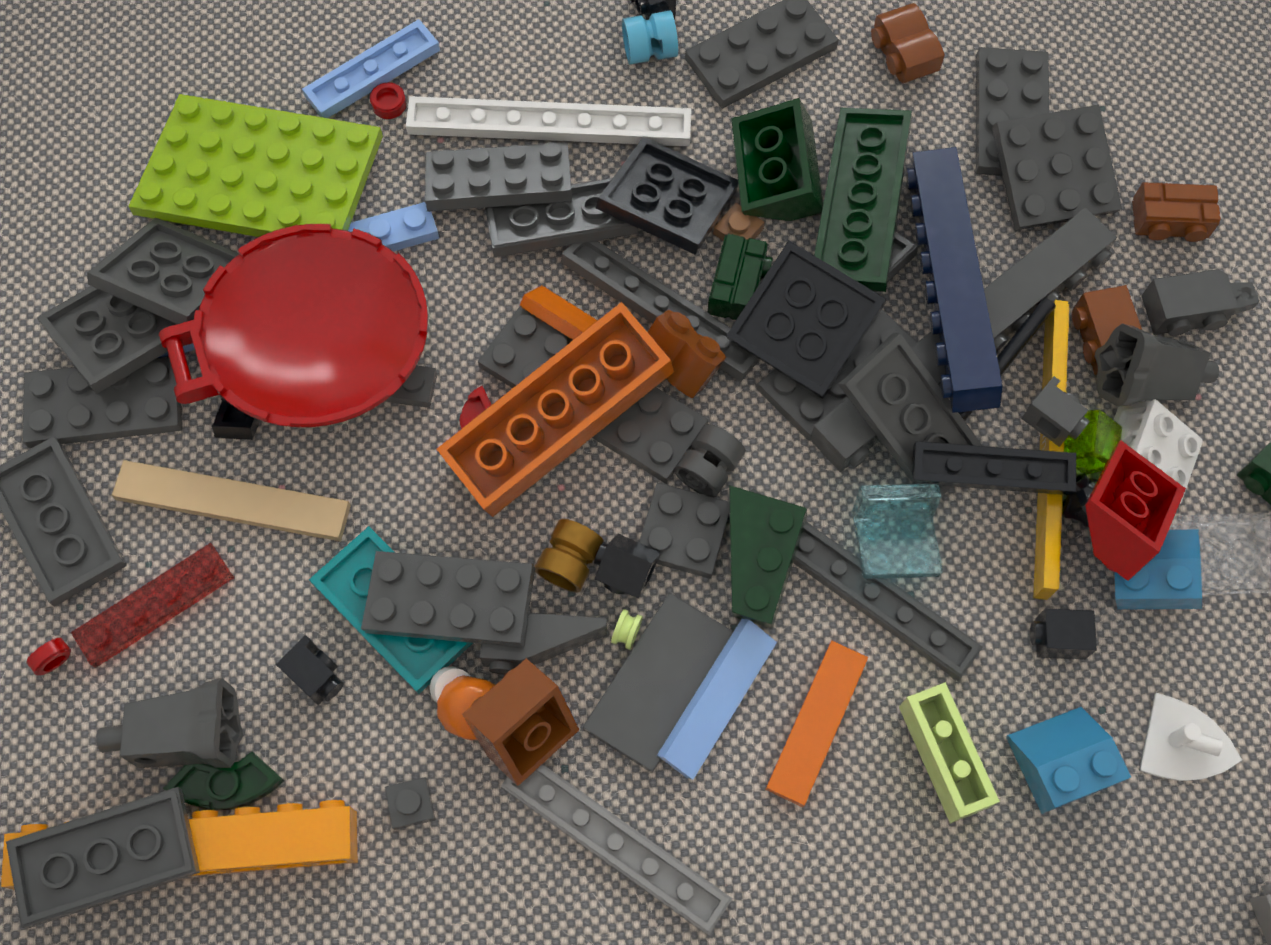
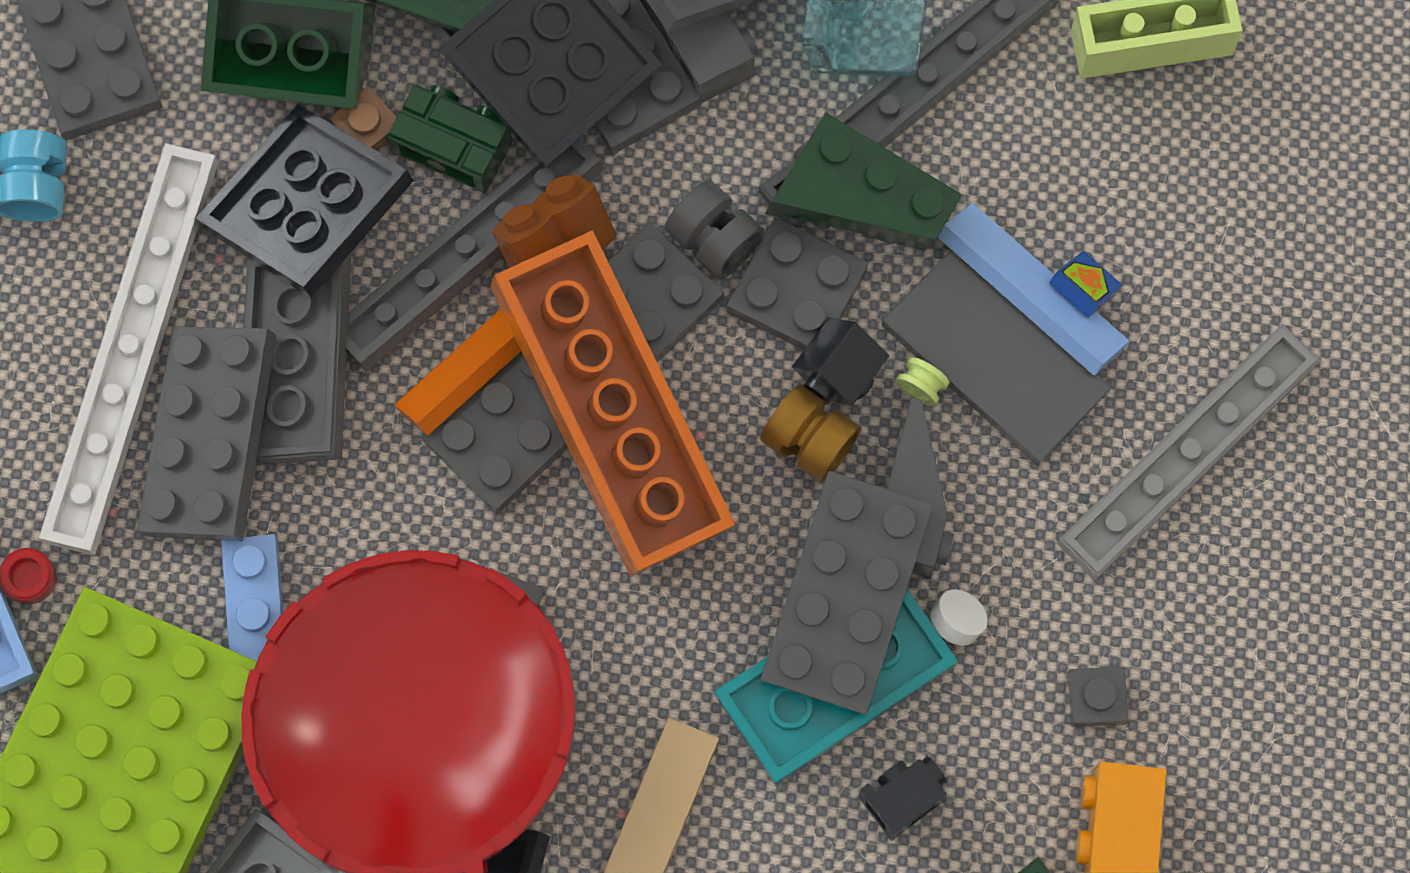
camera: 75 degrees left, 5 degrees up
(458, 698) = (992, 595): orange hair -> none
(474, 406) = (568, 526): red tile -> none
(521, 721) = (1030, 524): dark orange brick -> none
(730, 737) = (1085, 284): none -> tile
(816, 724) = (1083, 178): orange tile -> none

